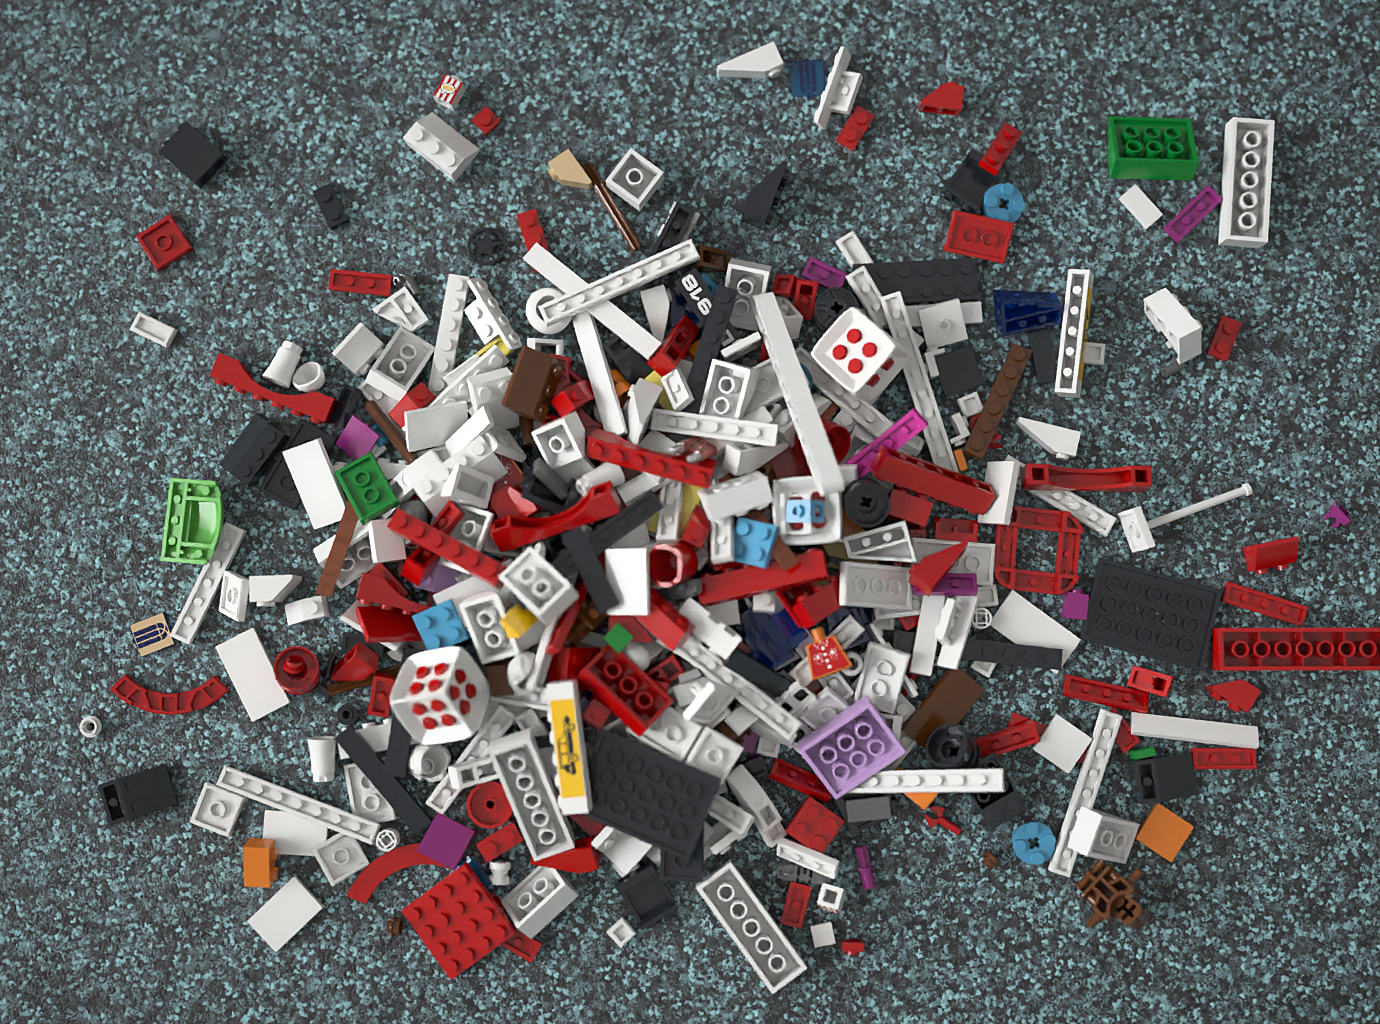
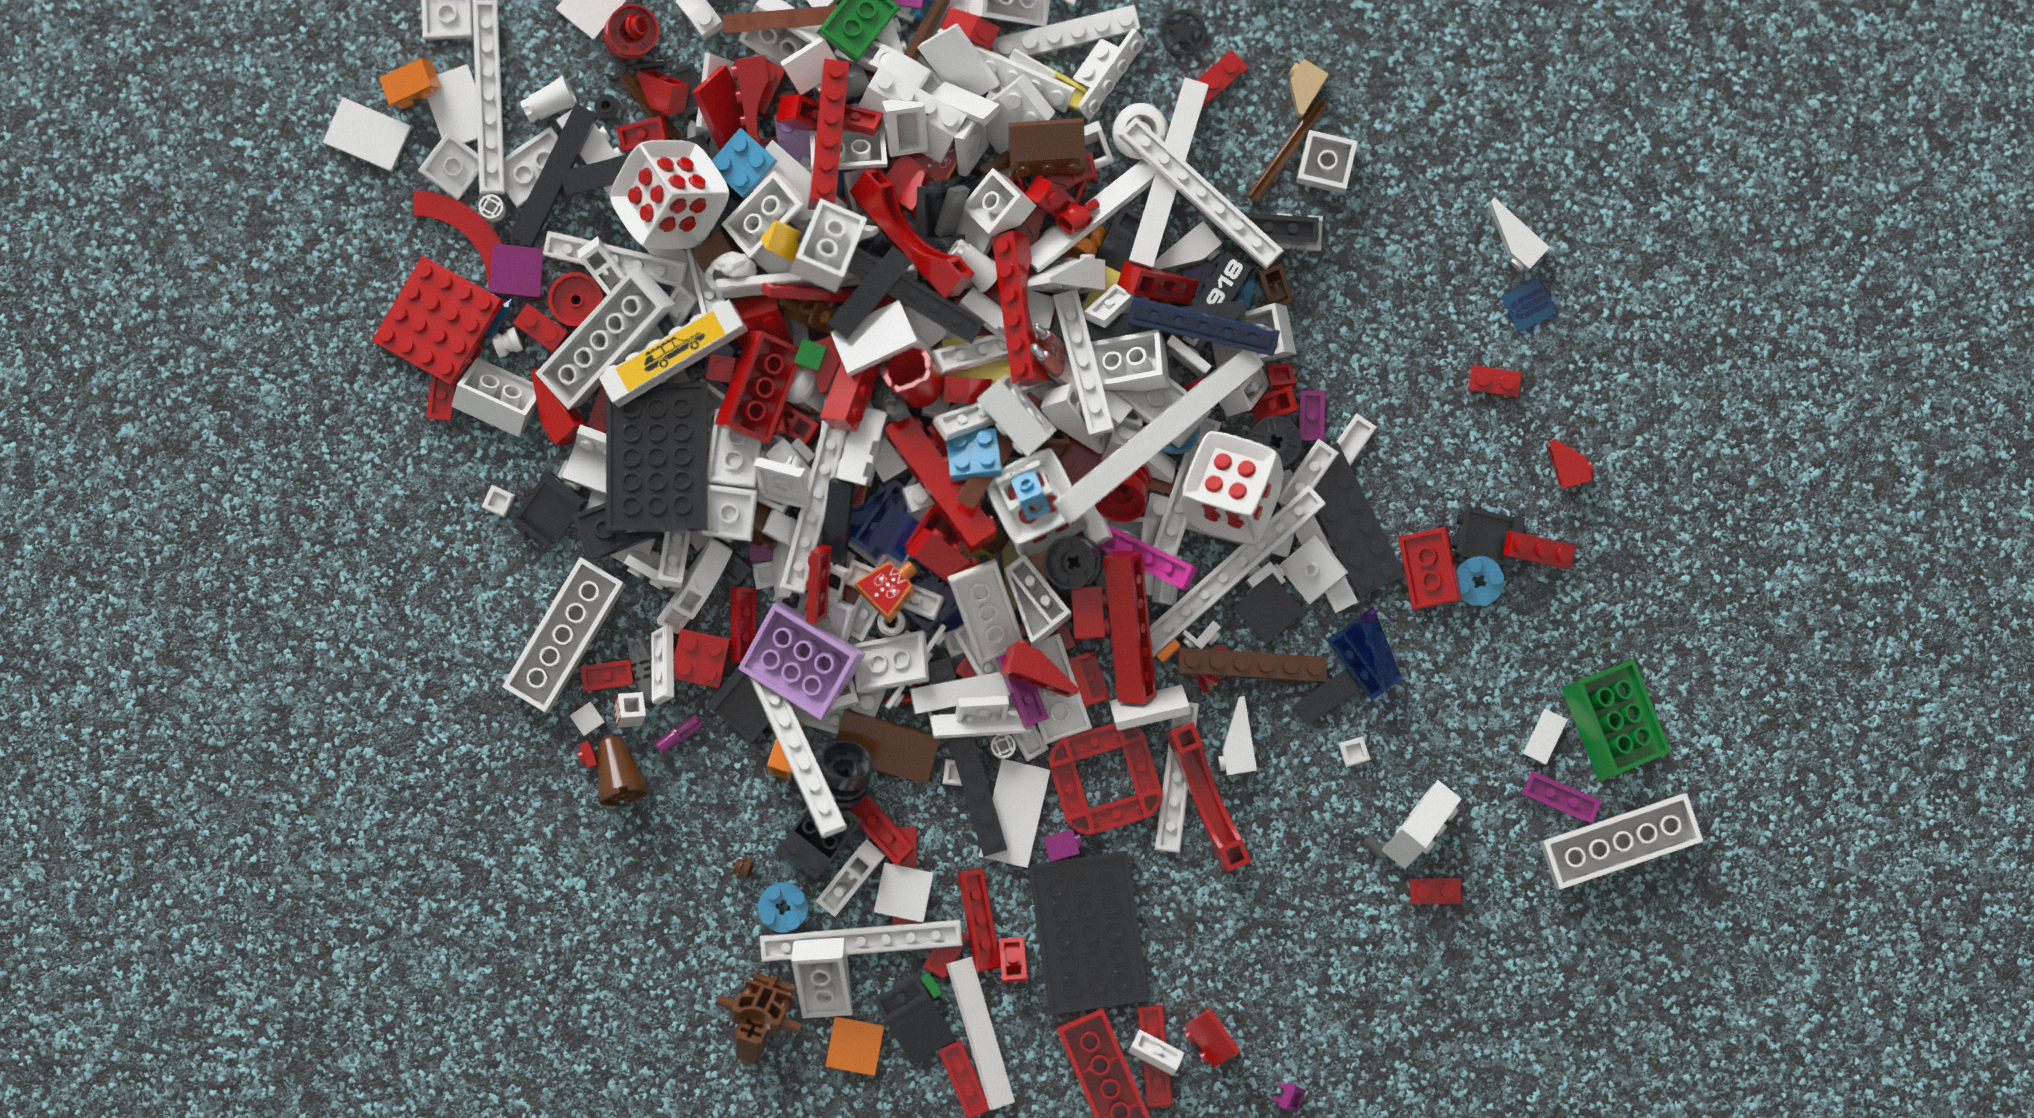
camera: 65 degrees right, 0 degrees up
(395, 926) = (402, 256): reddish brown plate -> none
(429, 762) = (593, 215): white hair -> none
(597, 384) = (1076, 217): none -> red piece
(725, 323) = (1203, 326): none -> dark blue tile
(761, 199) = (1366, 311): black slope -> none
(799, 709) = (818, 584): none -> red plate
(840, 90) = (1530, 344): white bracket -> none
(868, 809) = (742, 707): dark grey tile -> none
(876, 929) = (618, 773): none -> reddish brown cone
(942, 820) = (764, 797): red bar -> none
(970, 405) = (1237, 638): white tile -> none
(1033, 779) = (850, 877): none -> white slope
(1074, 333) = (1365, 718): white brick -> none
(1137, 528) = (1176, 877): white tile -> none
(1236, 692) = (1041, 1062): red slope -> none
(1266, 601) = (1156, 1052): none -> white plate

